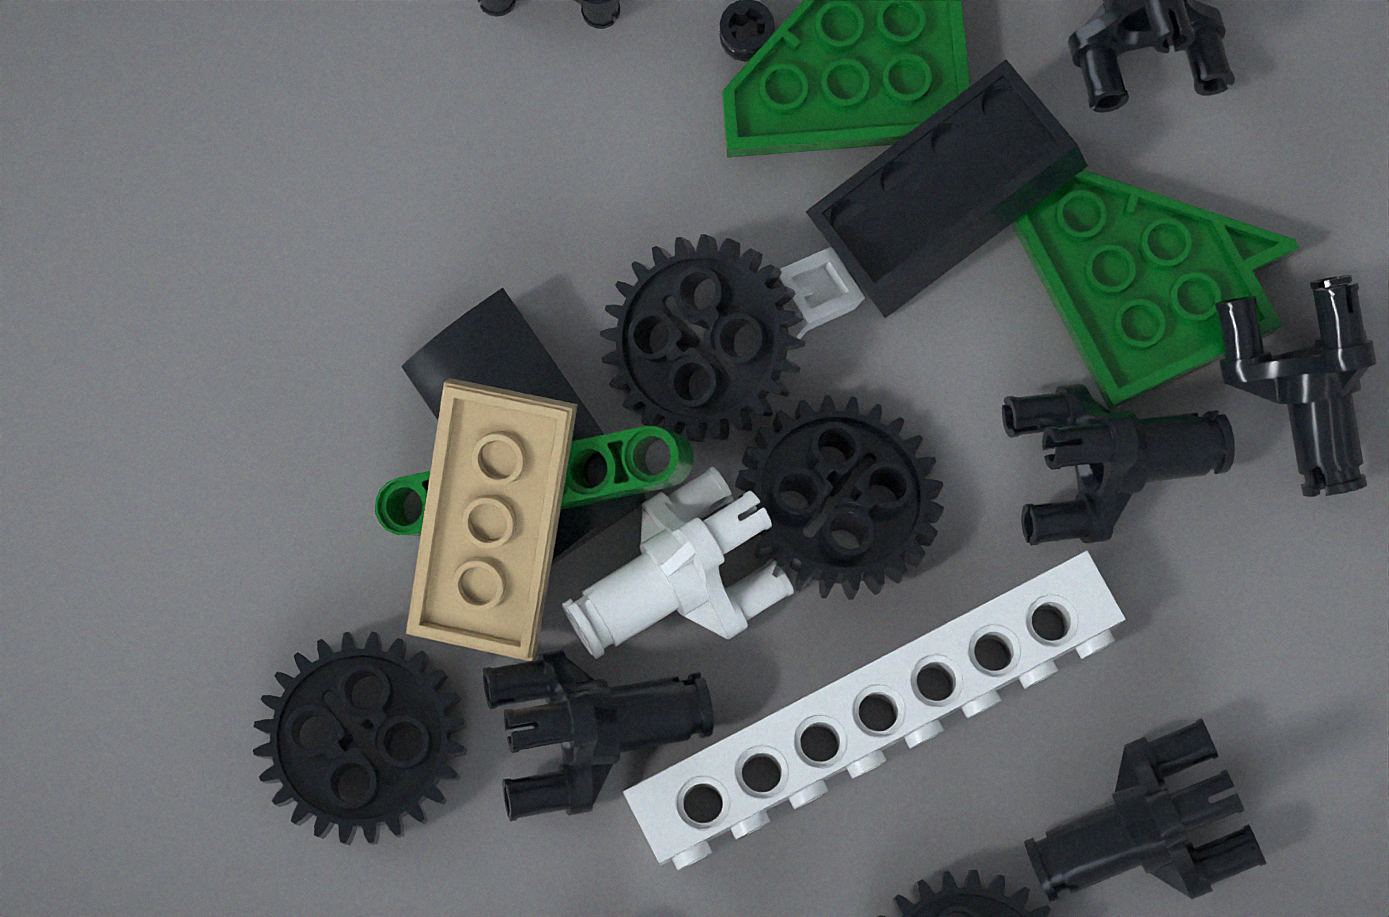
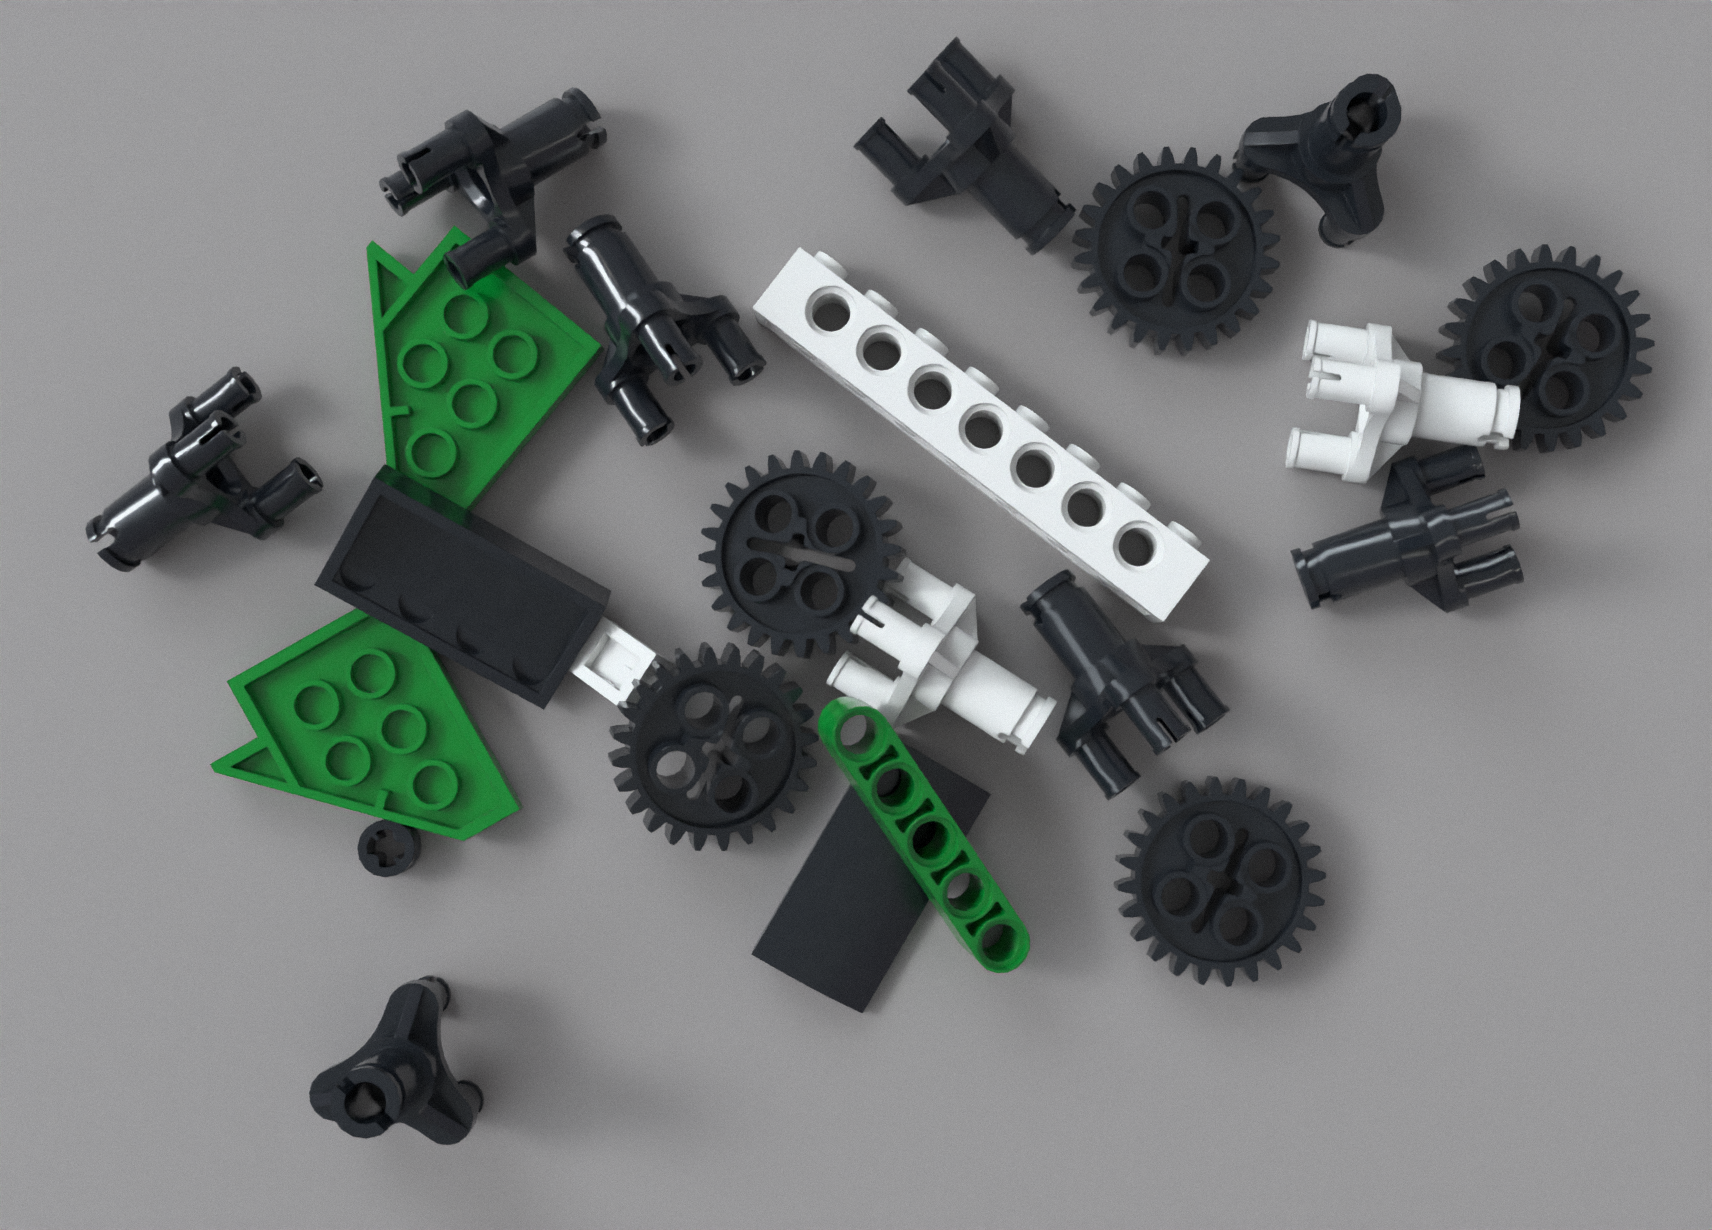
camera: 120 degrees left, 10 degrees up
(491, 518) = (979, 856): tan tile -> none

